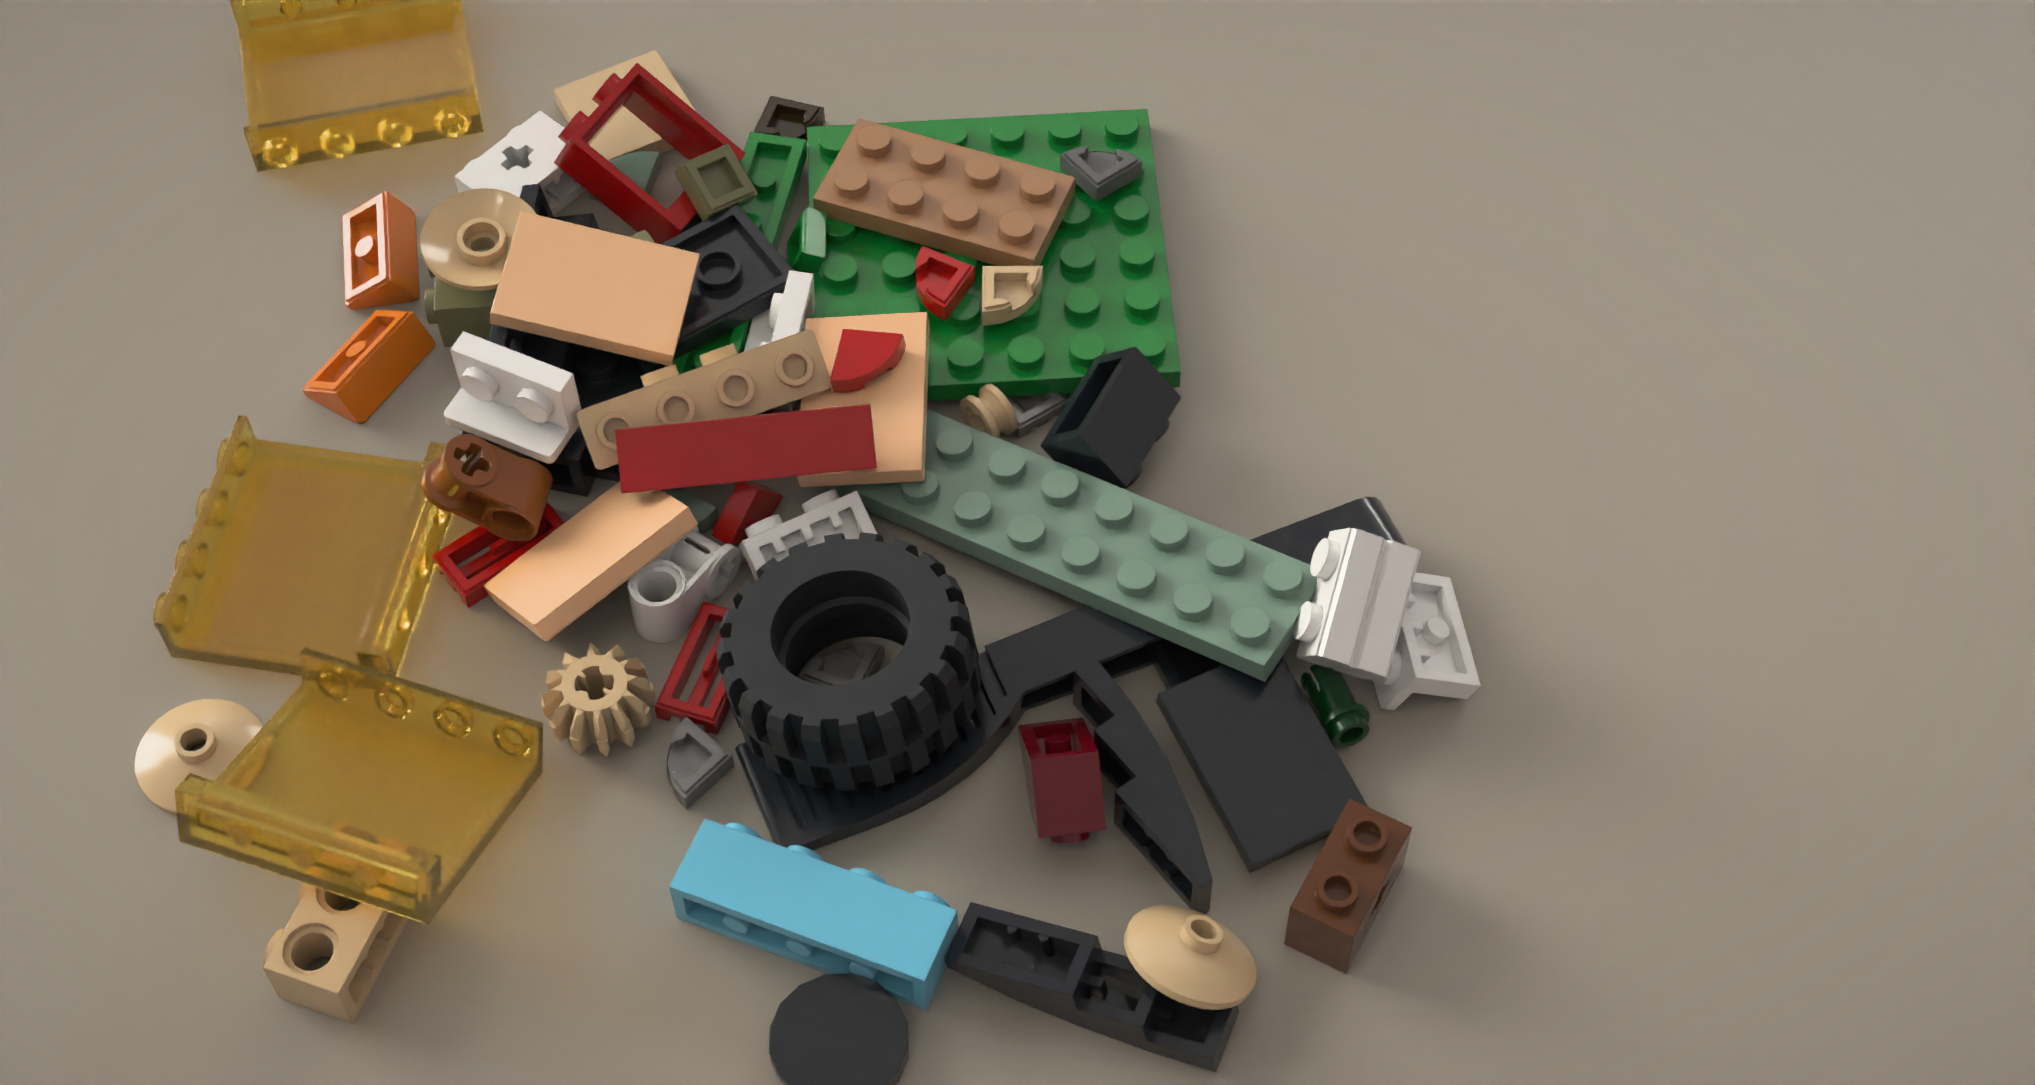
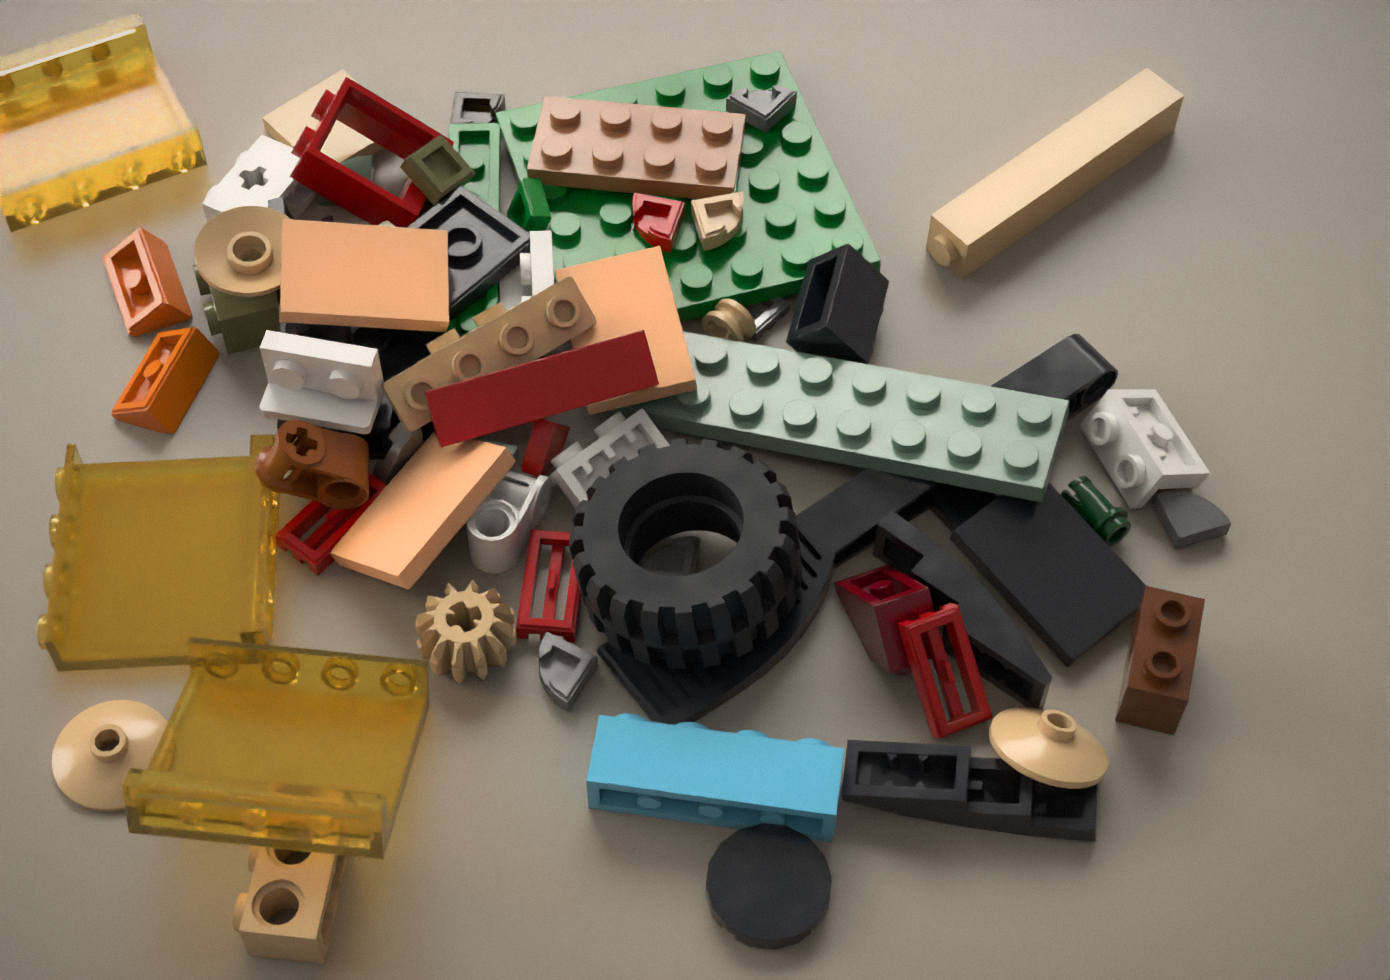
camera: 15 degrees left, 0 degrees up
(585, 490) = (403, 448): none -> flat silver tile
(863, 357) = (619, 293): red tile -> none
(1090, 791) = (922, 674): none -> red tile
(1356, 603) = (1102, 421): white brick -> none
(1415, 305) = (1053, 173): none -> tan brick
(1443, 732) = (1189, 517): none -> dark grey tile

